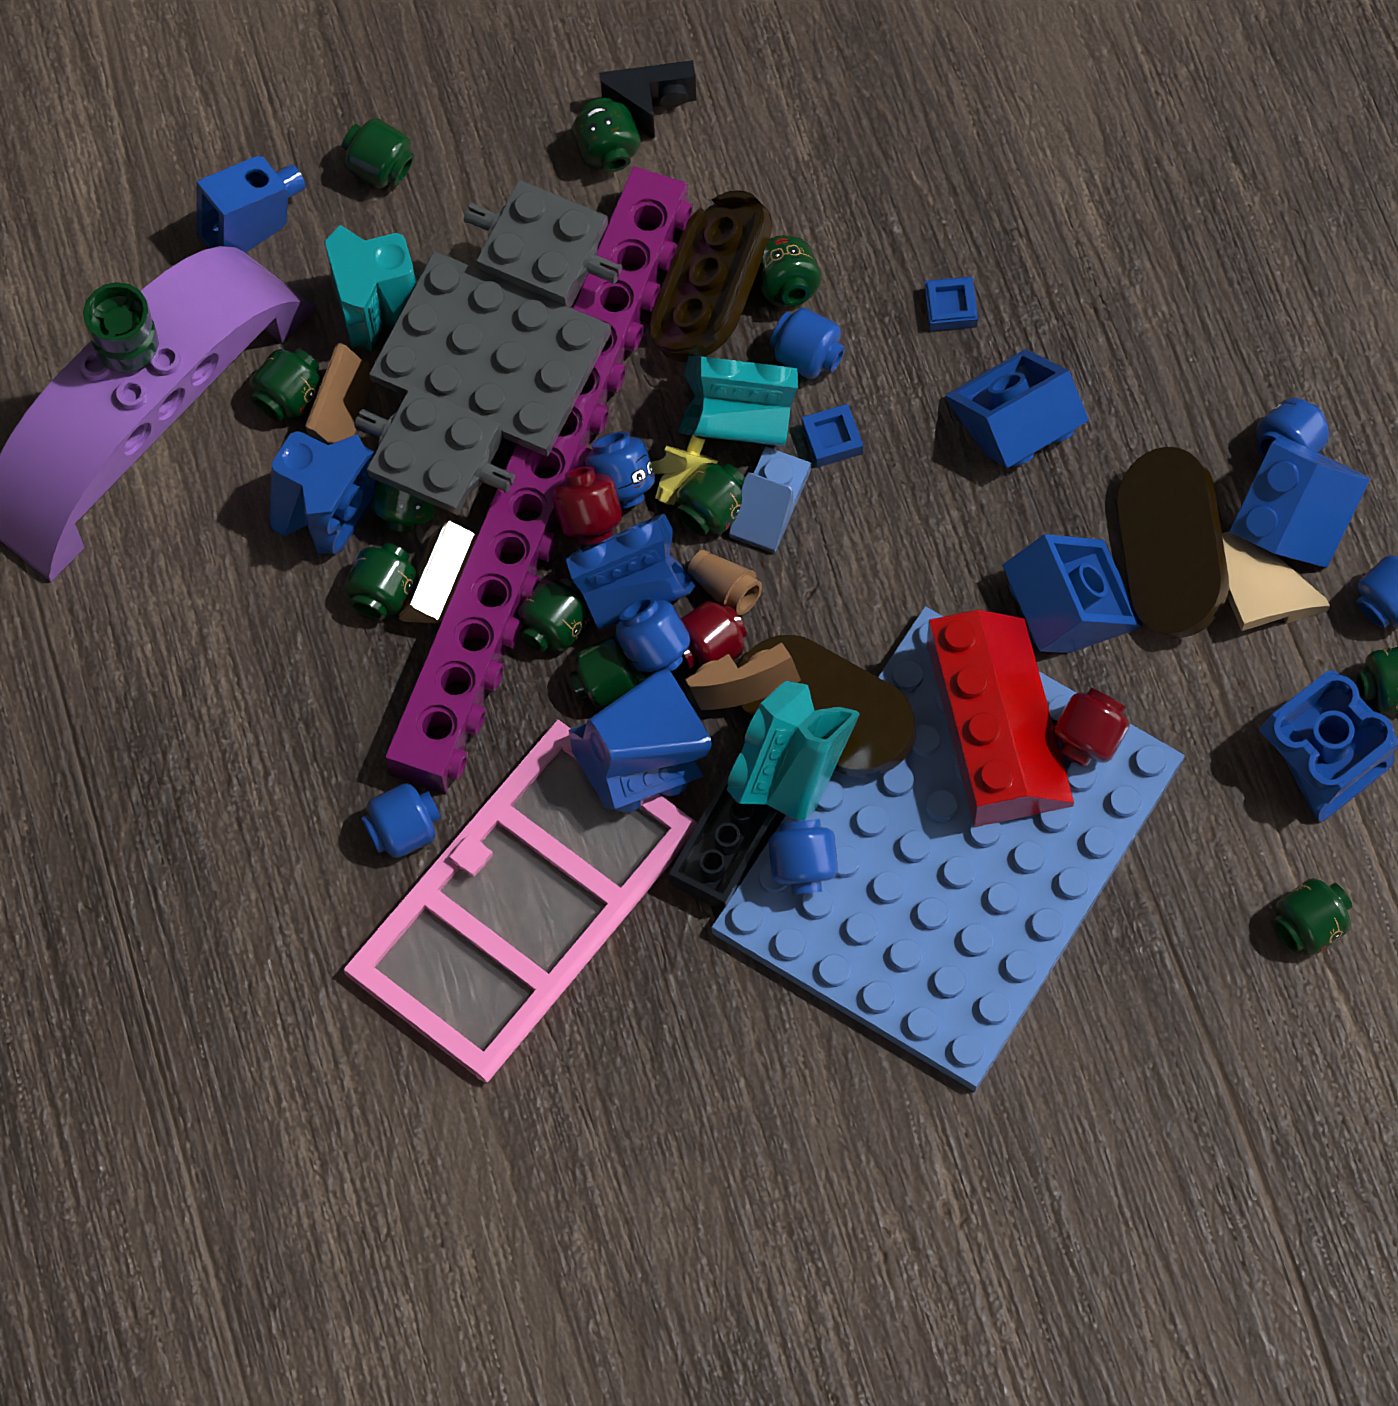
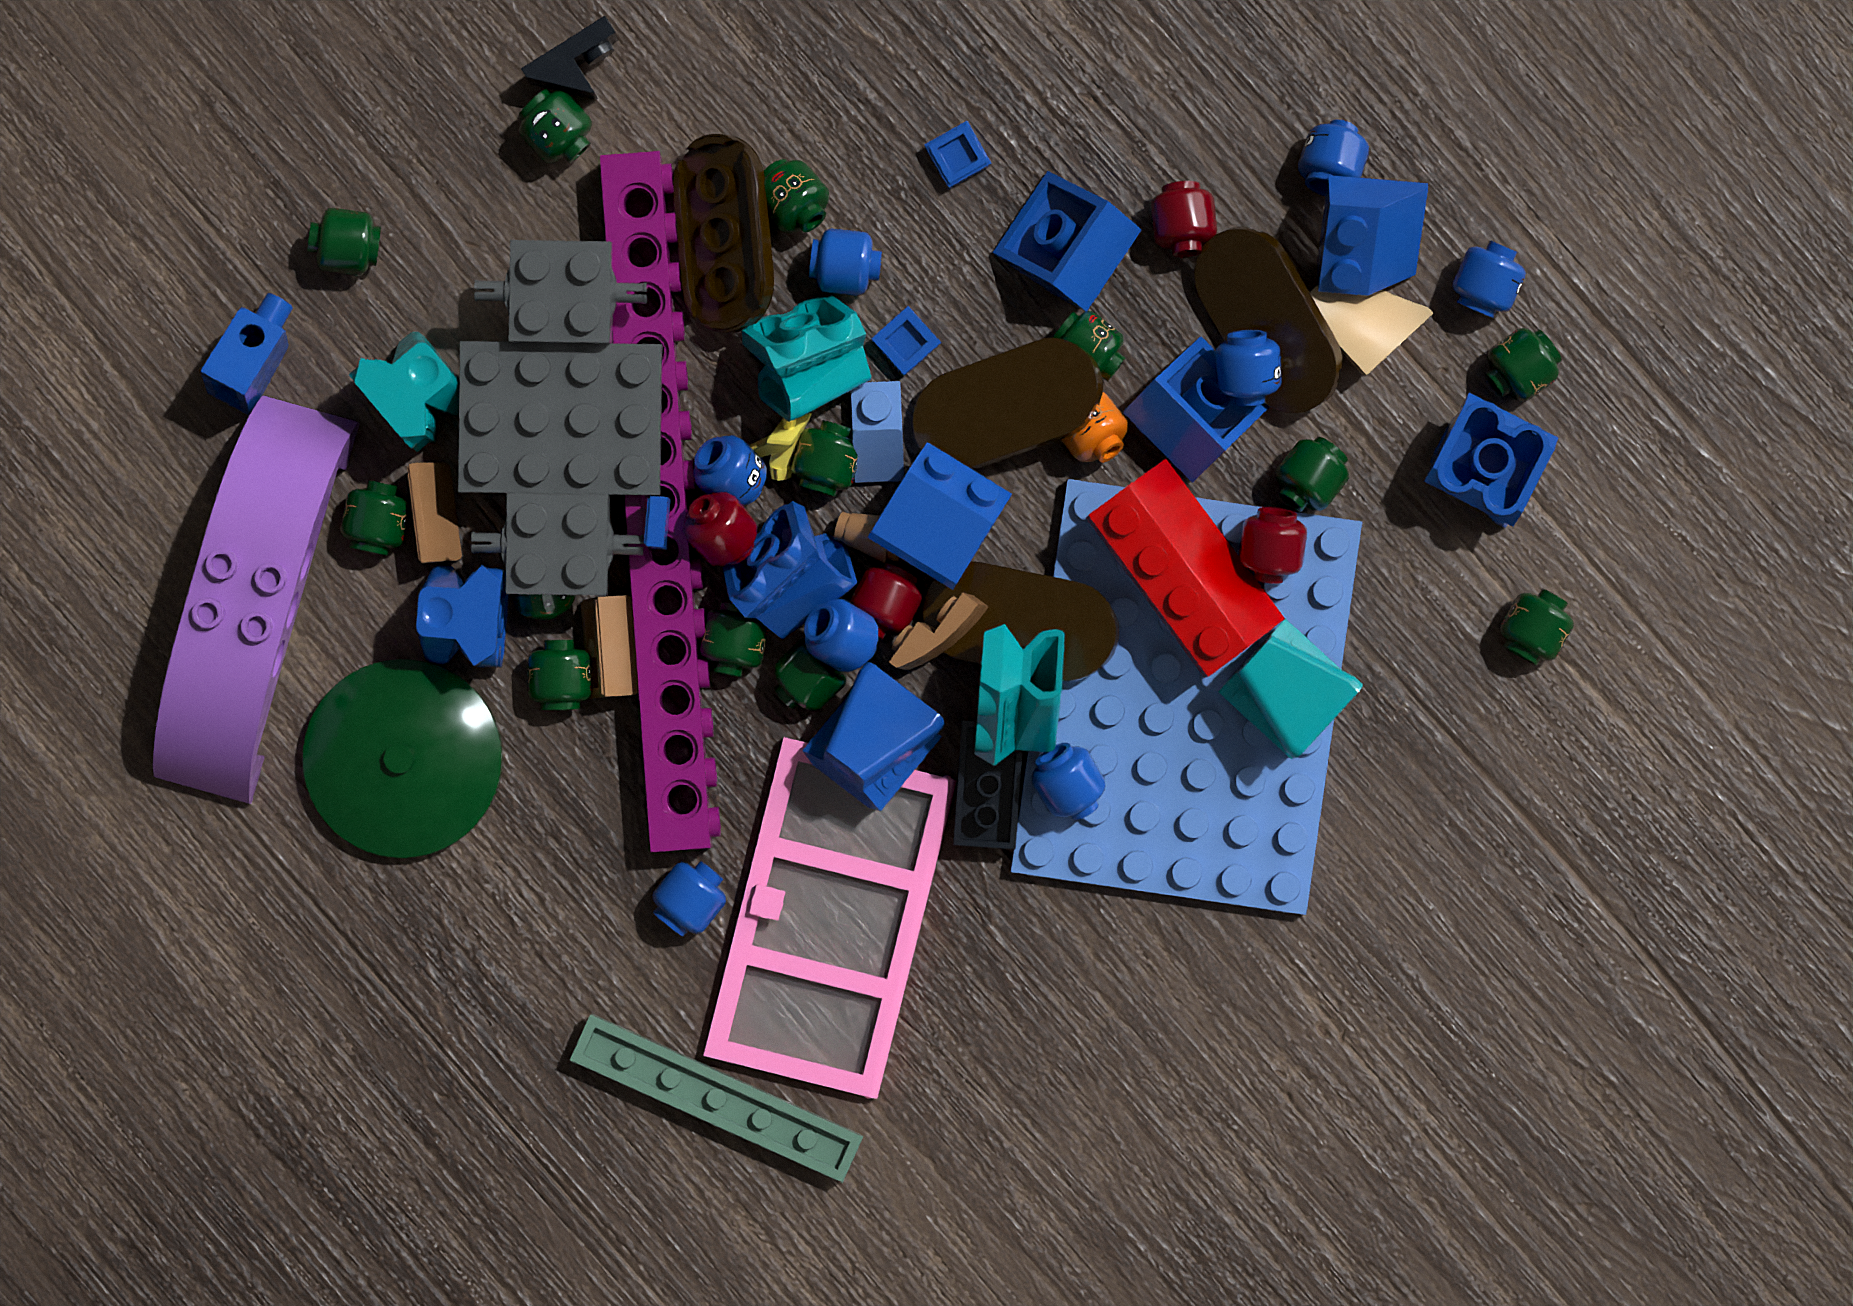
camera: 30 degrees left, 20 degrees up
(121, 327) = (221, 578): dark green wheel -> none
(205, 597) = (402, 758): none -> dark green dish
(337, 1014) = (716, 1097): none -> sand green plate
(533, 471) = (657, 522): none -> blue tile
(793, 578) = (939, 515): none -> blue slope
(899, 513) = (1009, 402): none -> dark brown tile
(967, 566) = (1101, 436): none -> orange head
(995, 499) = (1095, 338): none -> dark green head
(1050, 860) = (1290, 689): none -> teal piece
(1131, 427) = (1183, 218): none -> dark red head
(1136, 567) = (1248, 367): none -> blue head
(1156, 691) = (1312, 474): none -> dark green head

